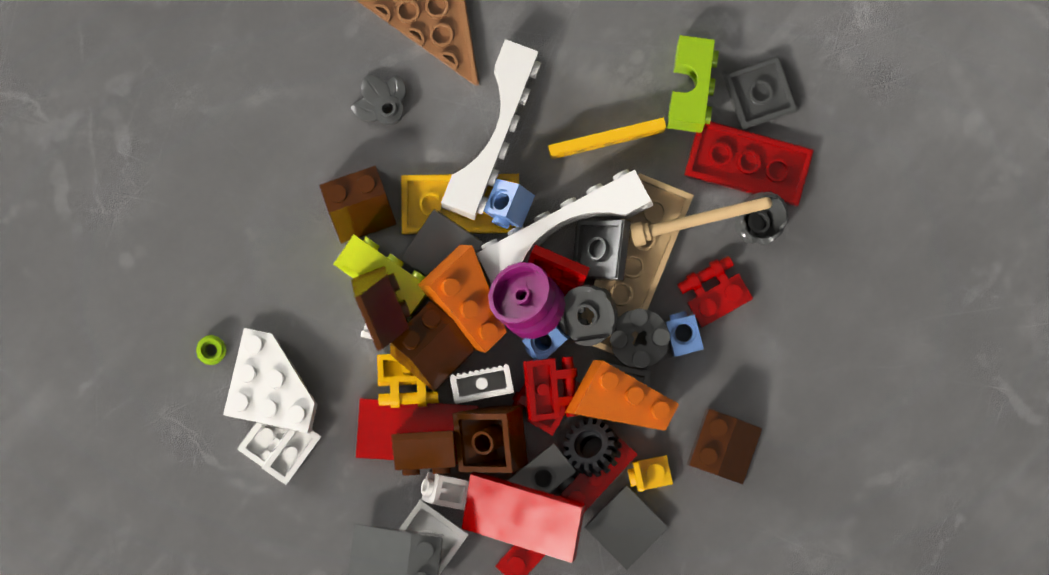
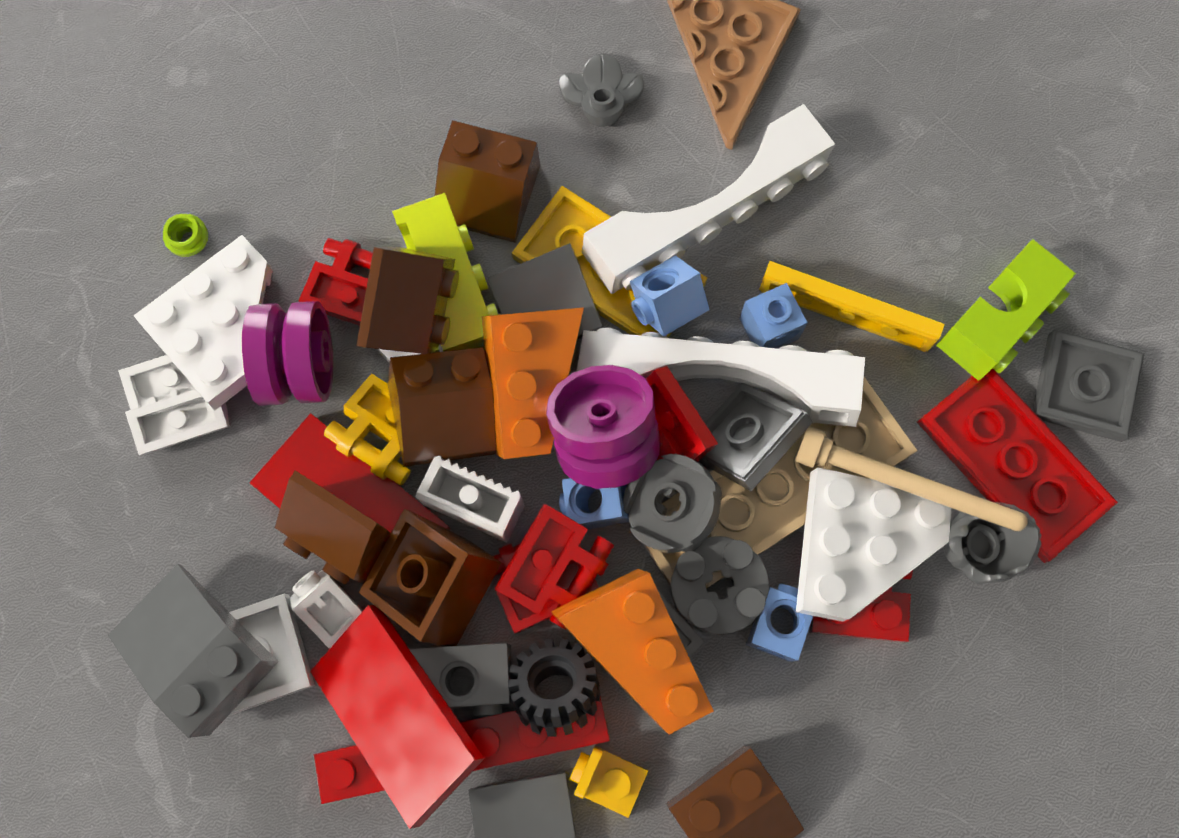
camera: 40 degrees right, 10 degrees down
(331, 320) = (334, 285): none -> red plate
(332, 373) = (287, 353): none -> magenta wheel
(571, 175) = (773, 318): none -> medium blue brick
(696, 265) = (862, 541): none -> white plate

